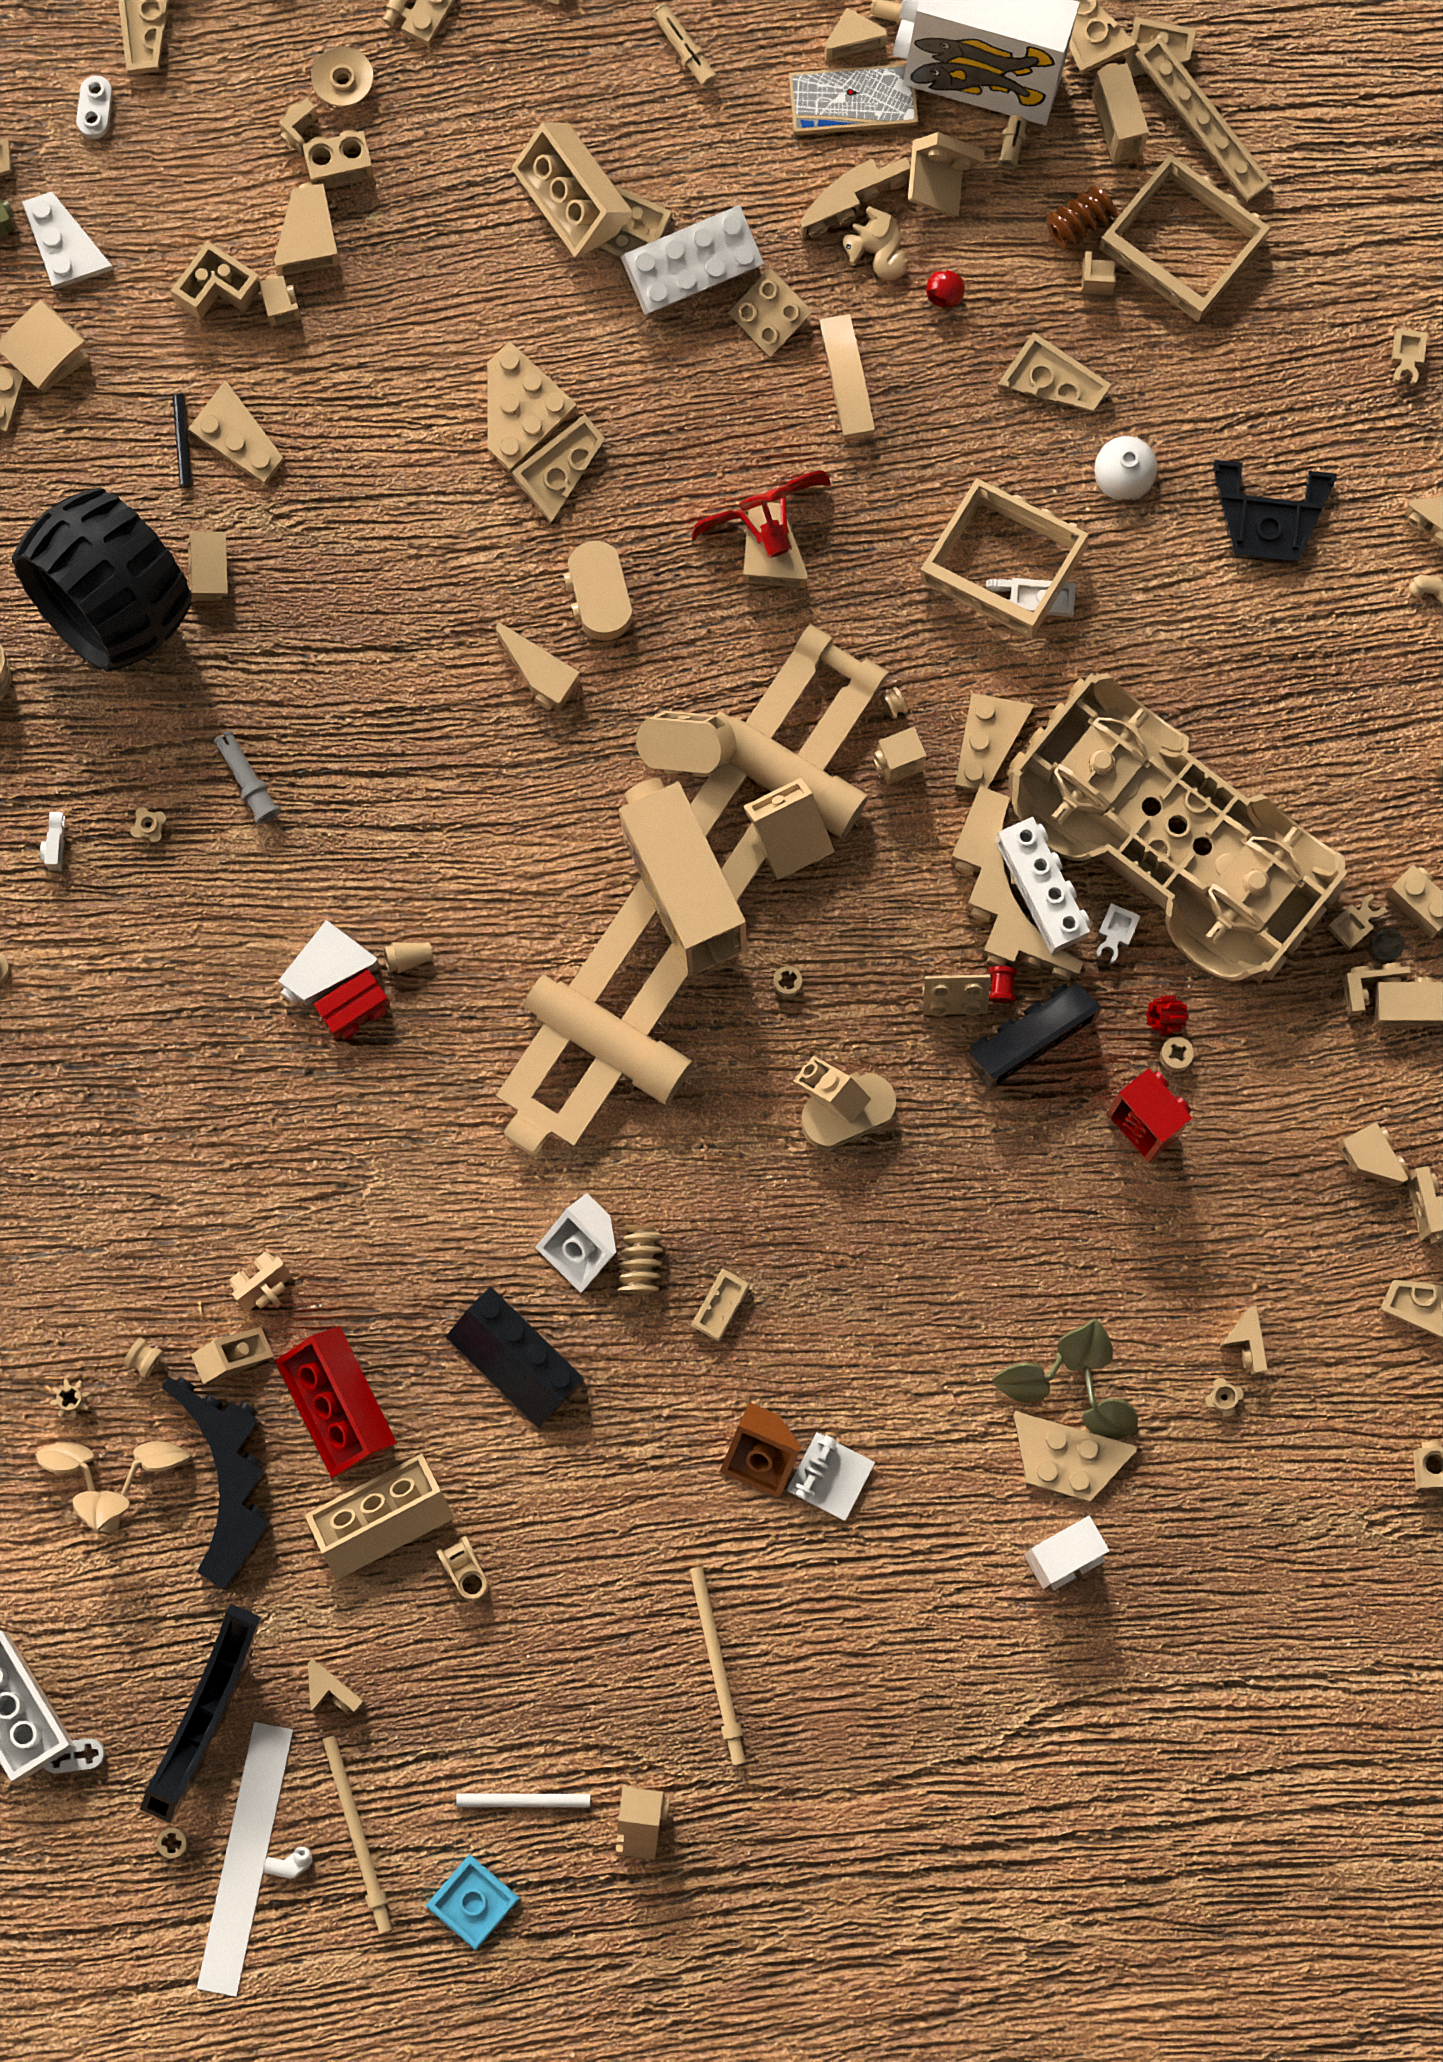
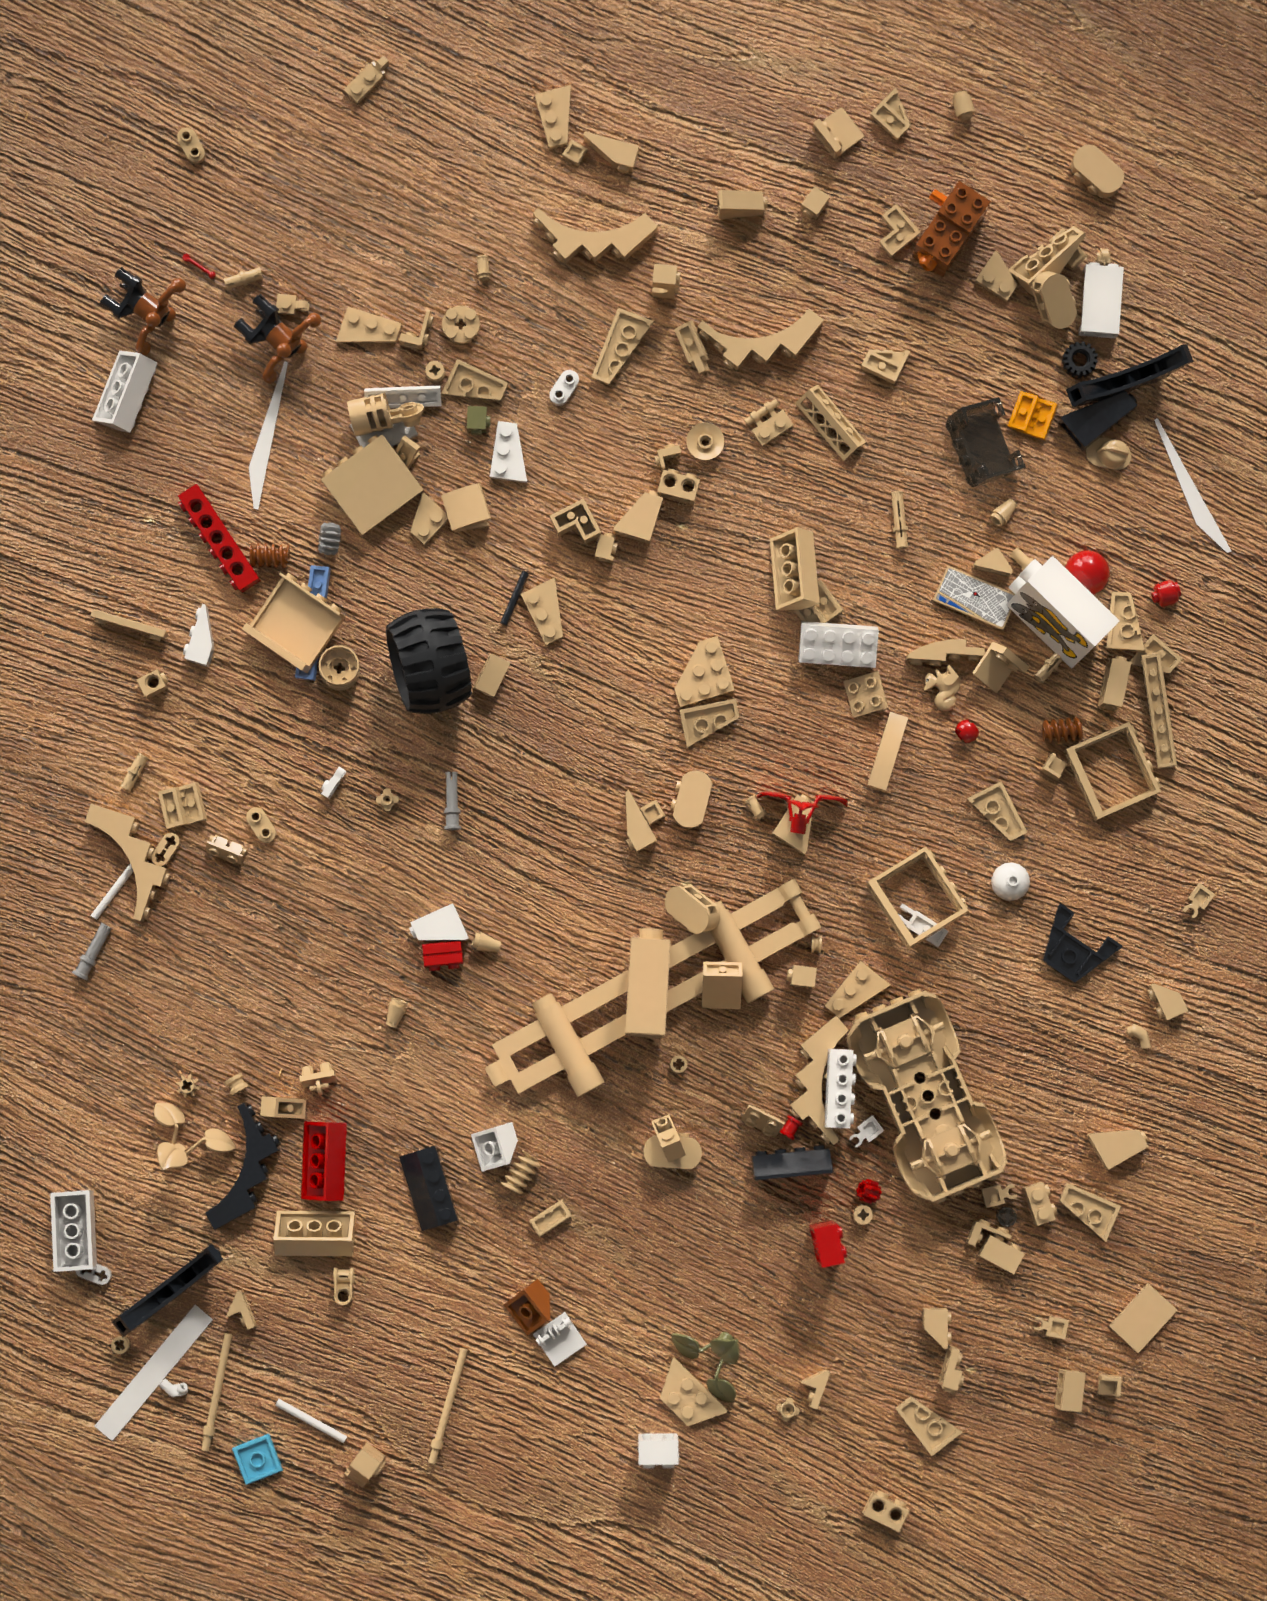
camera: 30 degrees right, 5 degrees up
(326, 1125) = (395, 1012): none -> tan cone
(552, 638) = (652, 812): none -> tan tile
(699, 555) = (755, 807): none -> tan pin

